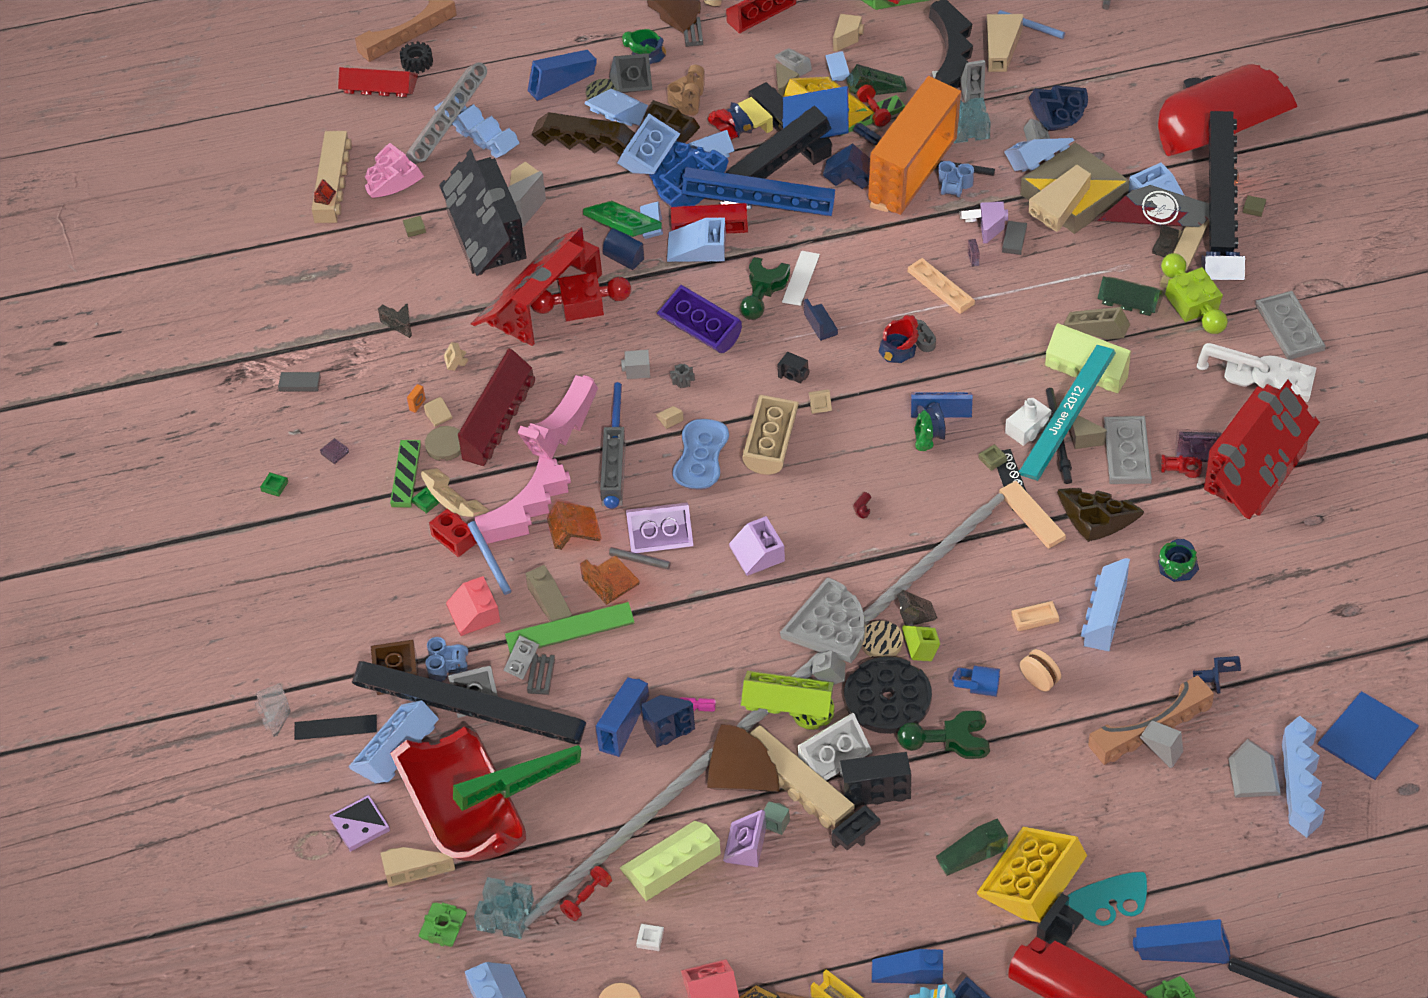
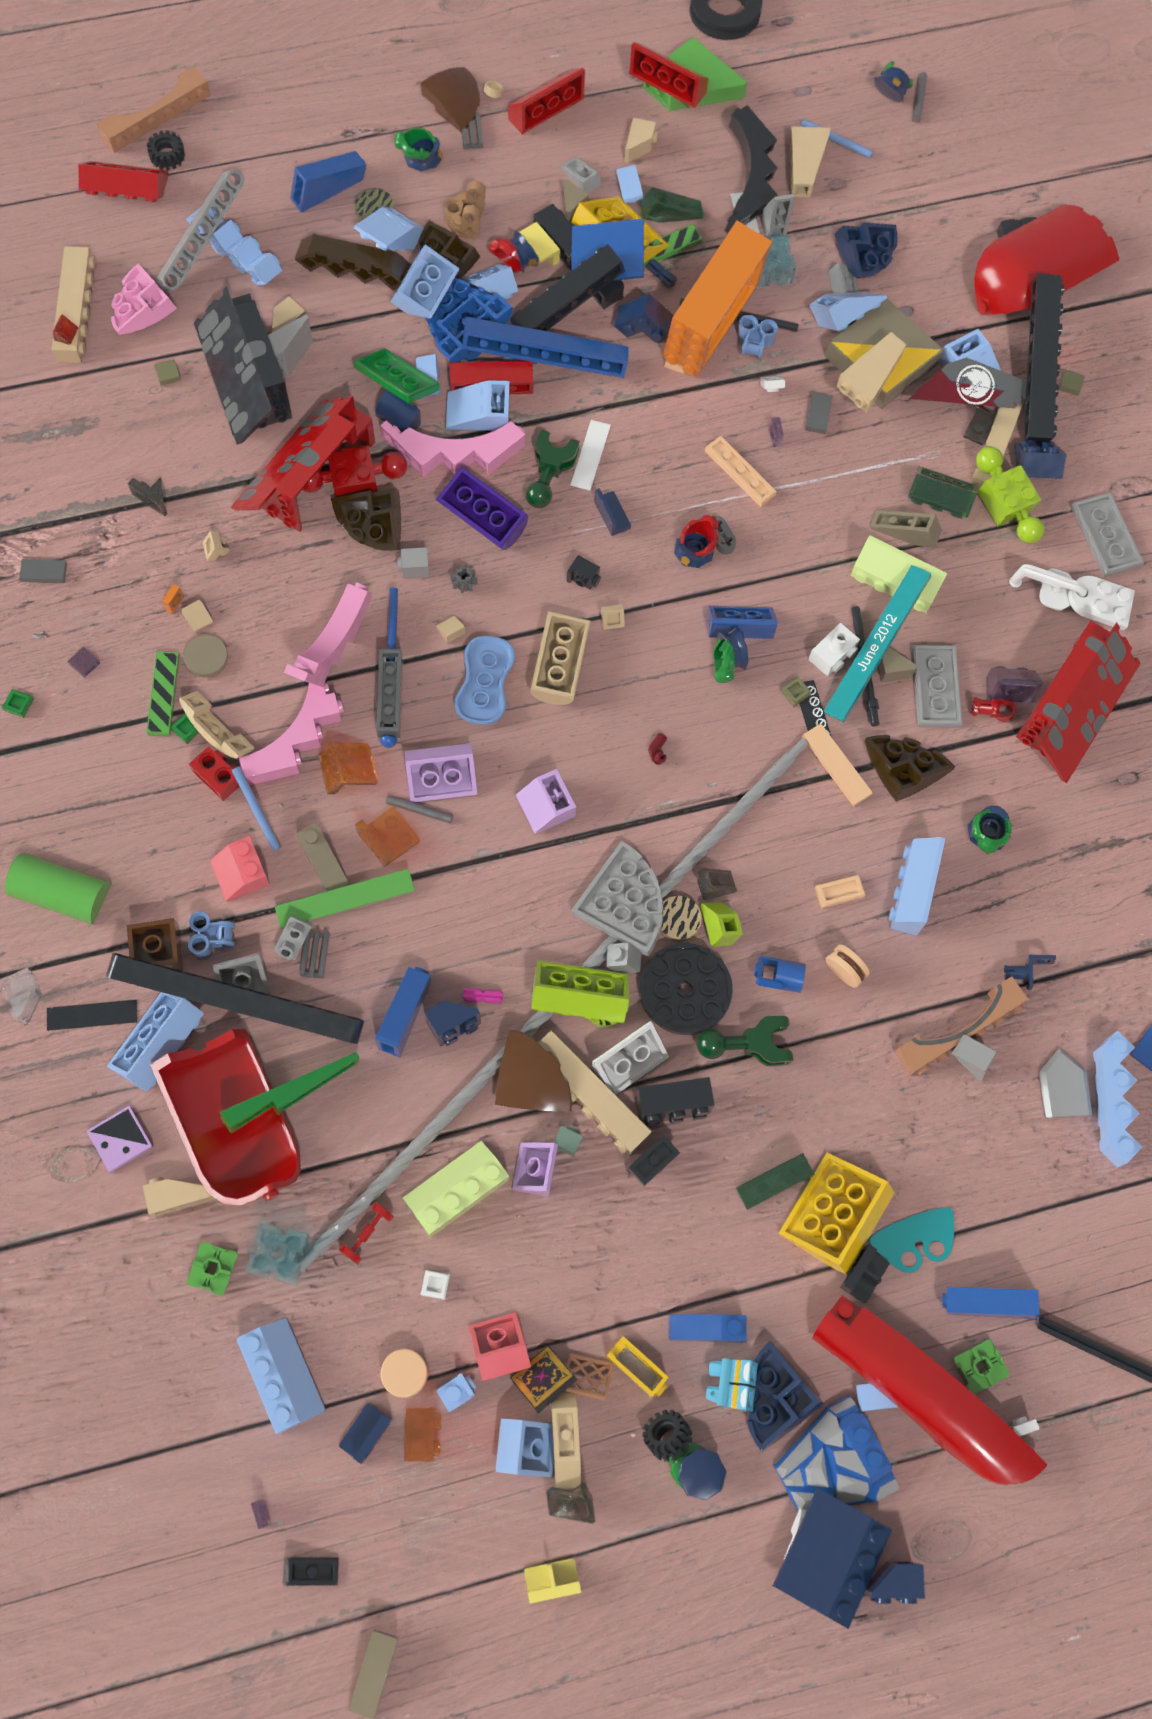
camera: 10 degrees left, 20 degrees up
(305, 625) = (56, 887): none -> bright green brick
(495, 409) = (260, 618): dark red slope -> none
(597, 330) = (371, 518): none -> dark brown brick
(631, 73) = (404, 184): dark grey slope -> none
(650, 278) = (428, 452): none -> bright pink arch
(881, 116) = (677, 252): red wheel -> none
(992, 219) = (796, 390): lavender slope -> none

